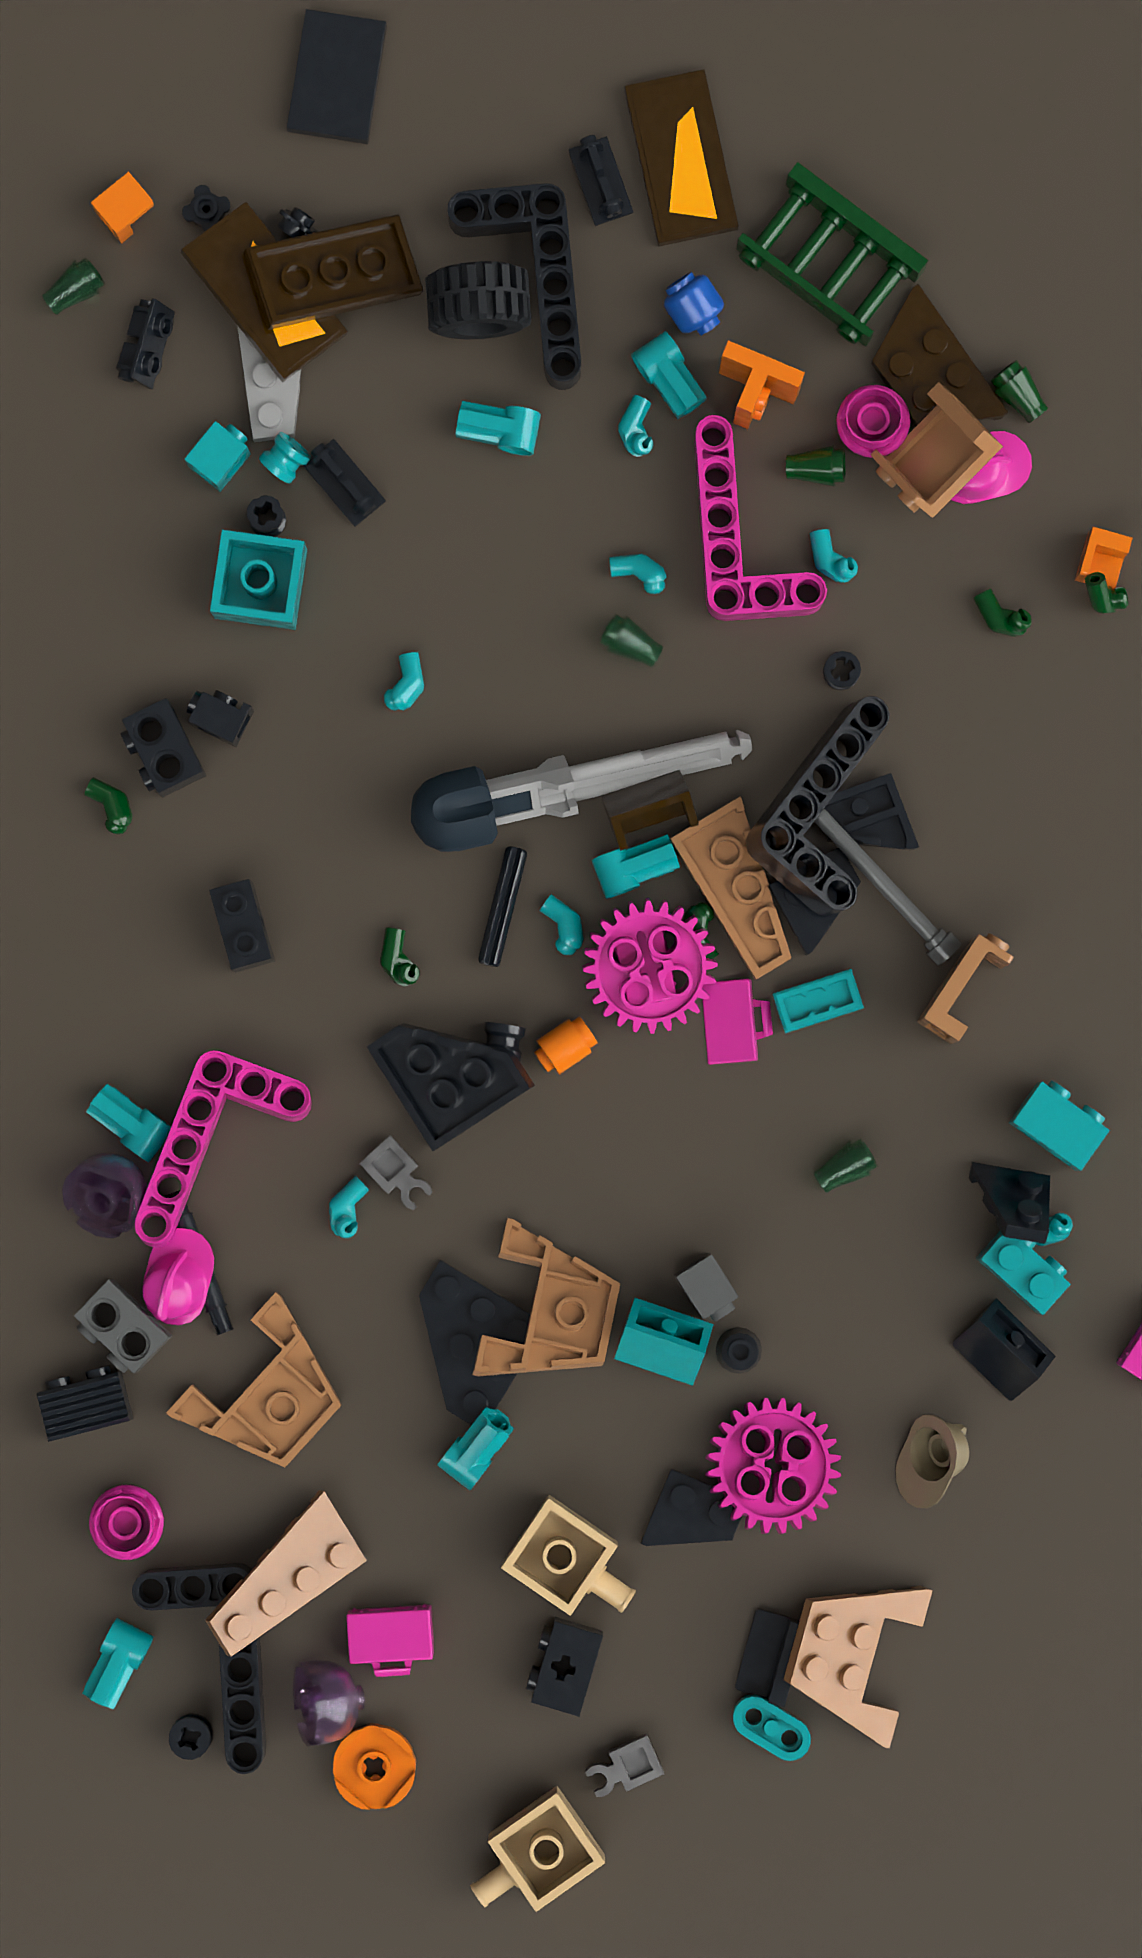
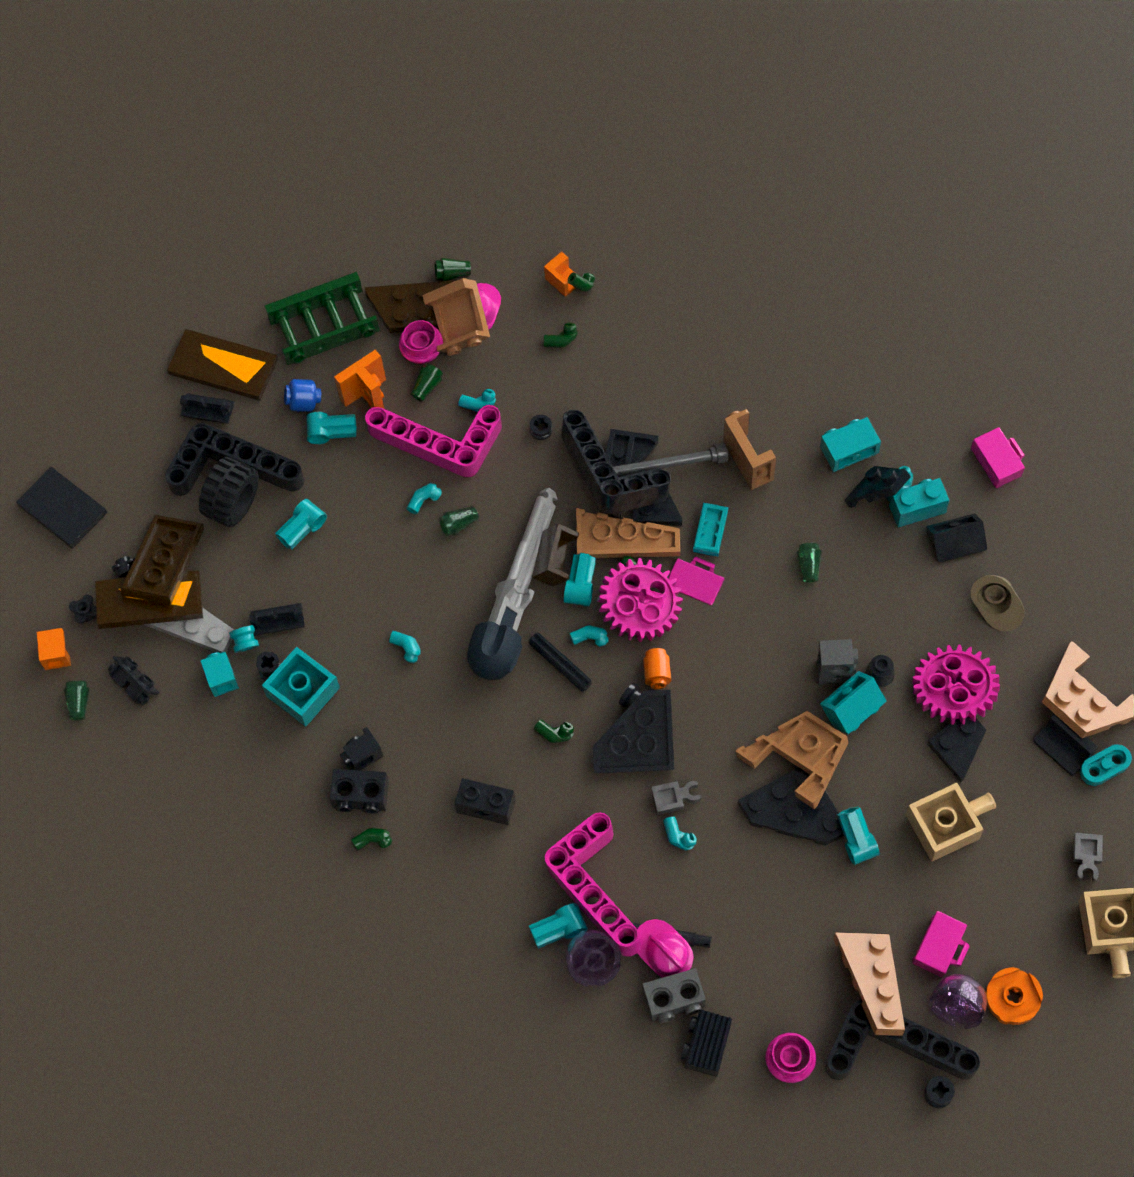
camera: 55 degrees left, 20 degrees down
(121, 1654) = (868, 1104): teal piece -> none
(280, 1406) = (771, 932): medium nougat wing -> none
(567, 1691) = (1007, 842): black brick -> none
(632, 429) = (349, 462): teal arm -> none

